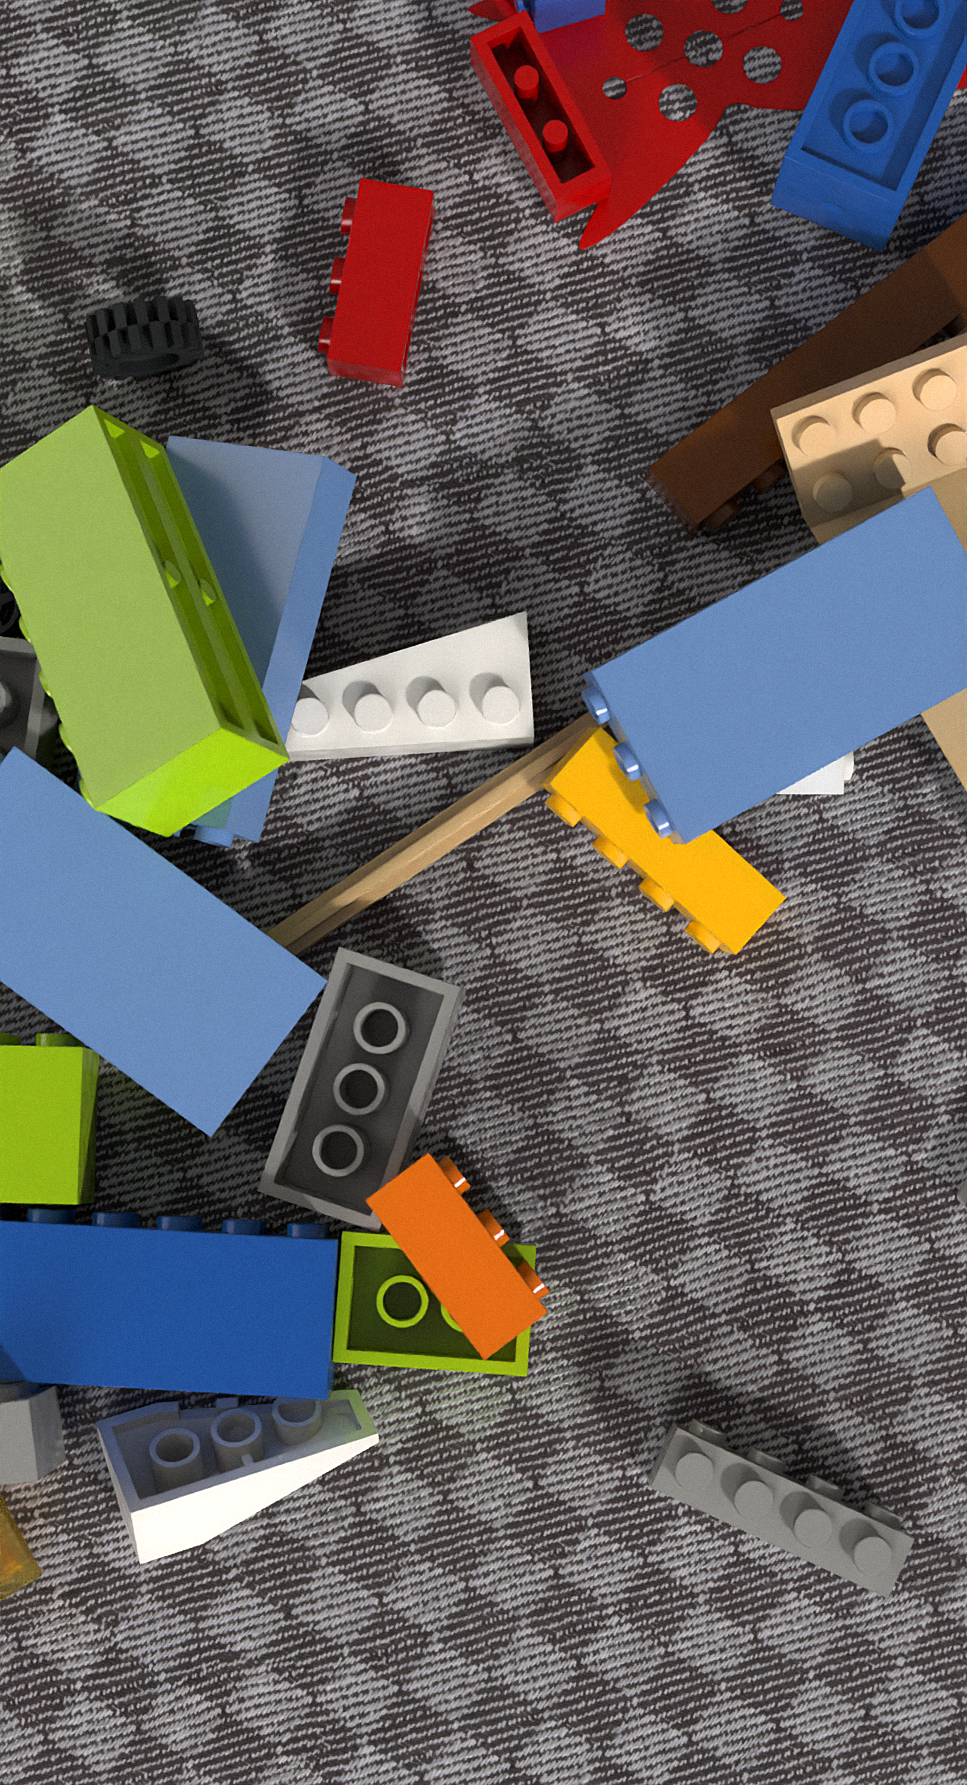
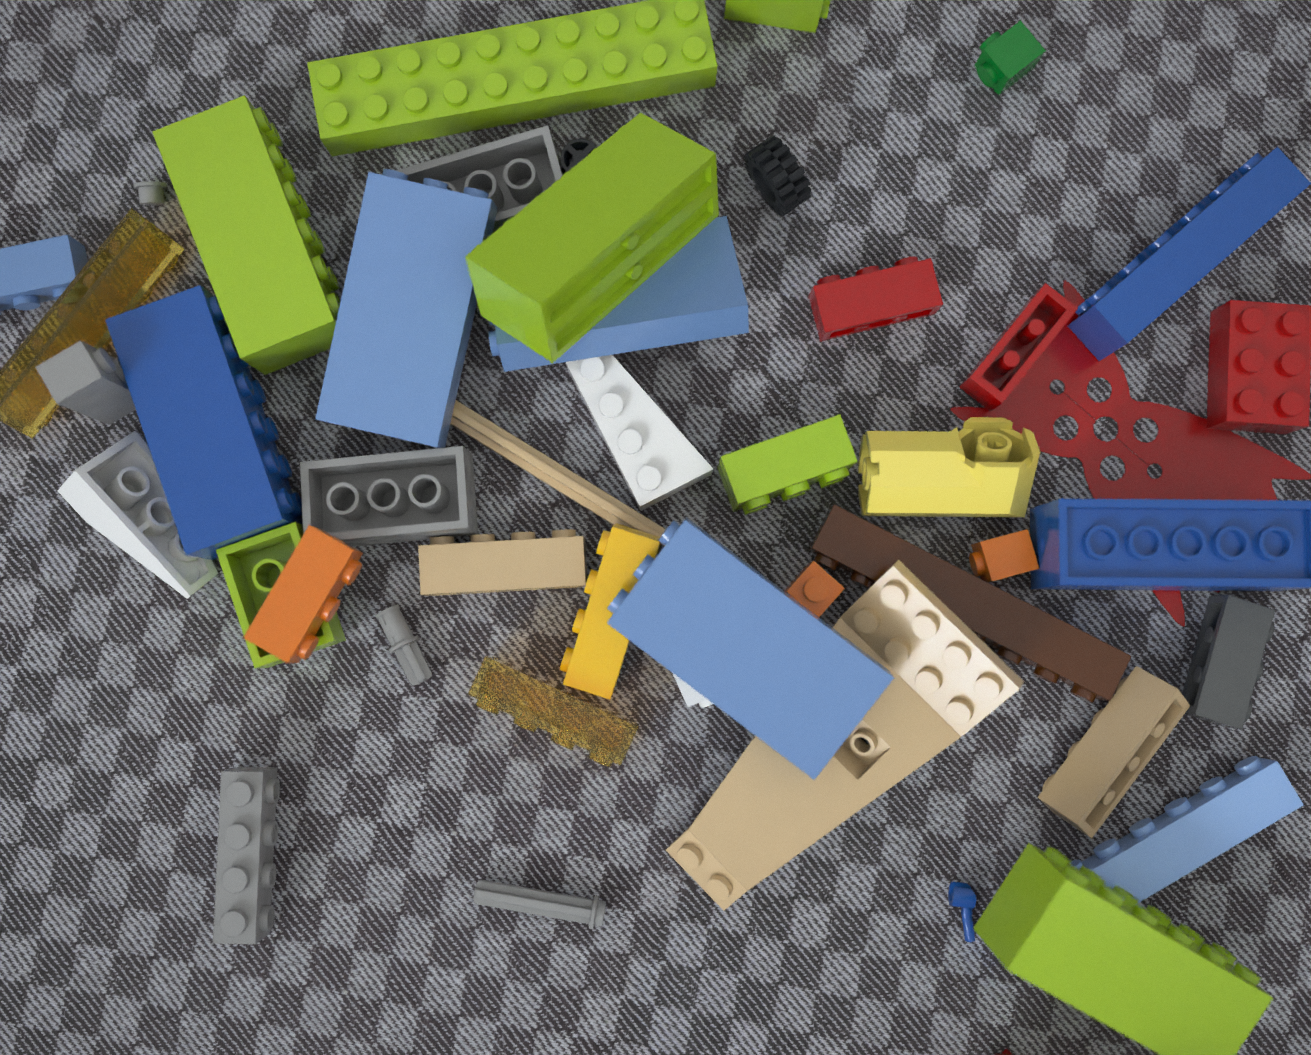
camera: 65 degrees right, 0 degrees up
(529, 967) = (502, 565): none -> tan brick
(568, 508) = (787, 465): none -> lime brick
(580, 1161) = (404, 645): none -> light grey axle
(681, 276) = (948, 474): none -> light yellow brick
(752, 546) = (814, 588): none -> orange brick
(767, 981) = (553, 709): none -> clear yellow brick
(822, 269) = (1003, 556): none -> orange brick

